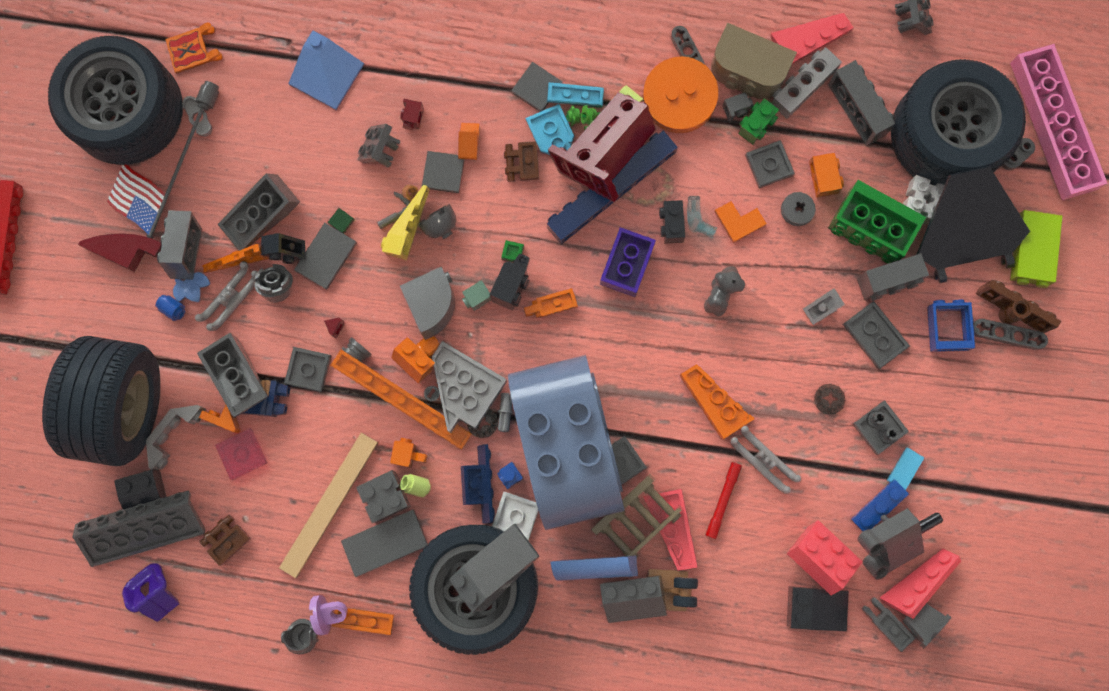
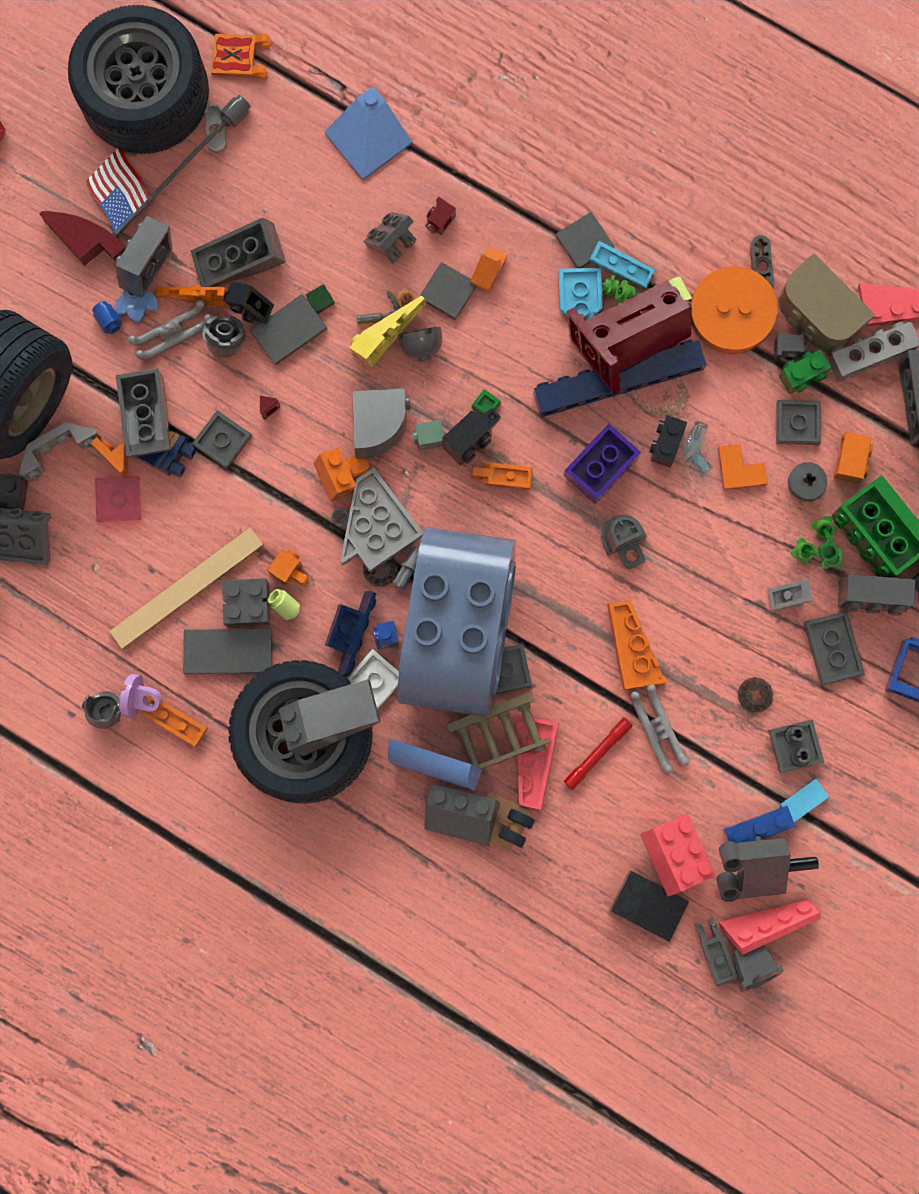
camera: 20 degrees right, 0 degrees up
(228, 544) = (66, 586): reddish brown plate -> none
(356, 350) = (280, 441): dark grey wheel -> none
(399, 398) = (304, 508): orange tile -> none
(527, 161) = (542, 314): reddish brown plate -> none
(667, 313) = (621, 535): none -> dark grey container
(723, 285) = (694, 529): dark grey animal -> none
(840, 259) = (826, 550): none -> bright green plant

